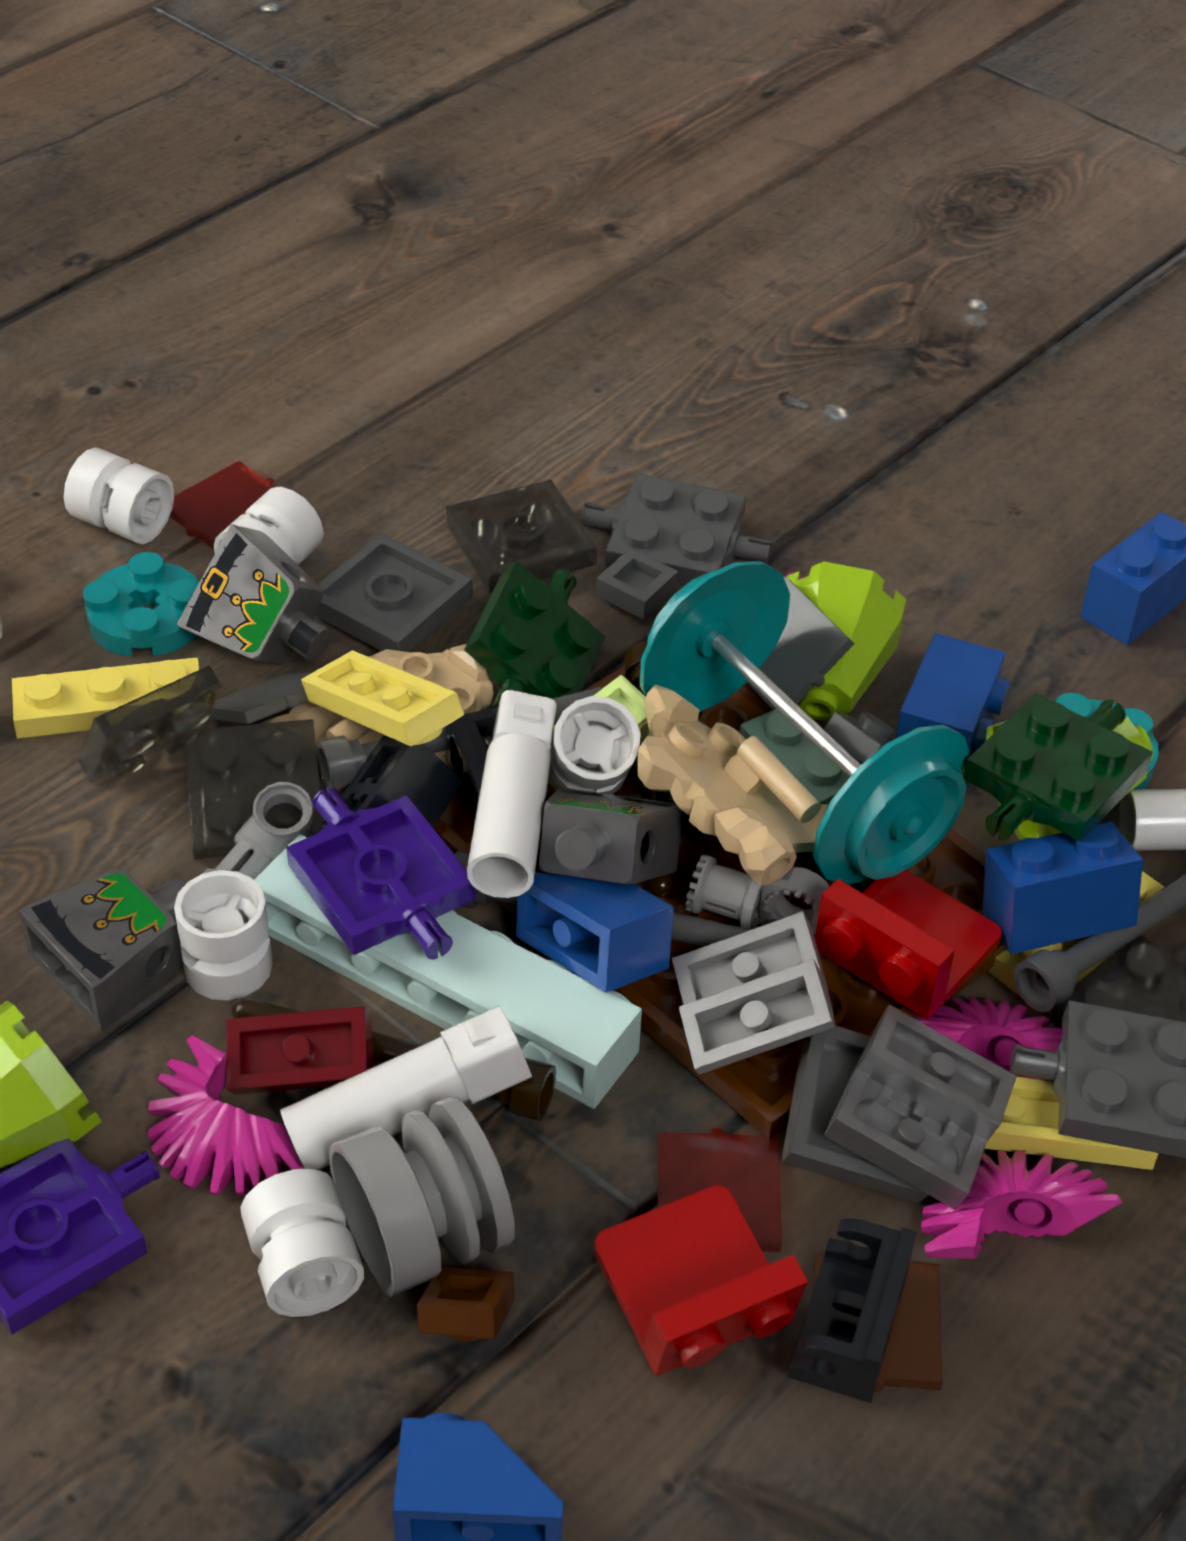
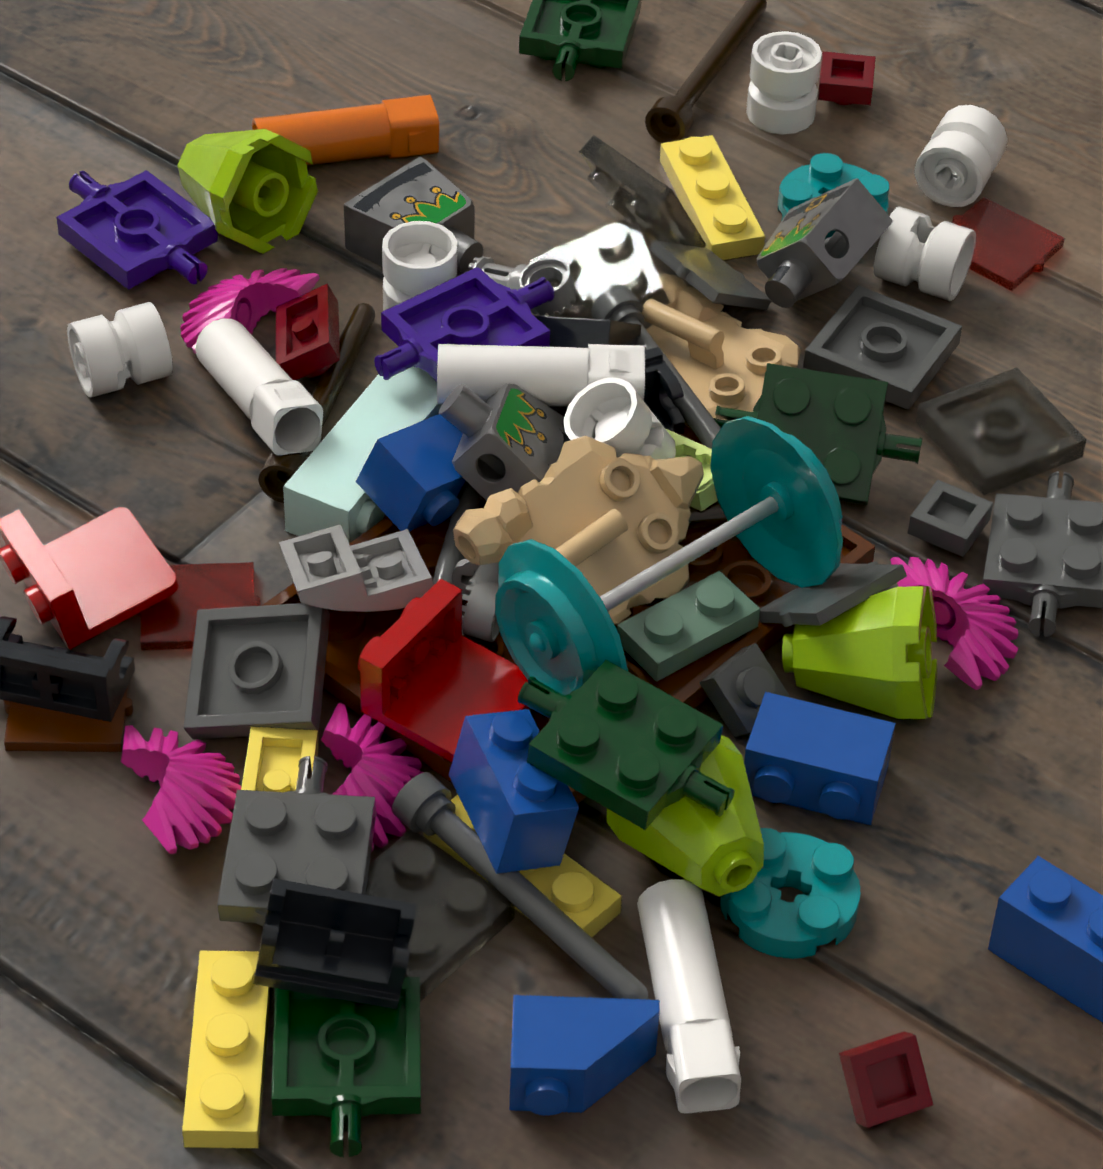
camera: 85 degrees right, 0 degrees up
(383, 698) = (654, 296): light yellow plate -> none
(435, 1189) = (147, 392): light grey wheel -> none
(466, 1303) = (72, 447): reddish brown plate -> none
(921, 1107) = (247, 692): flat silver slope -> none

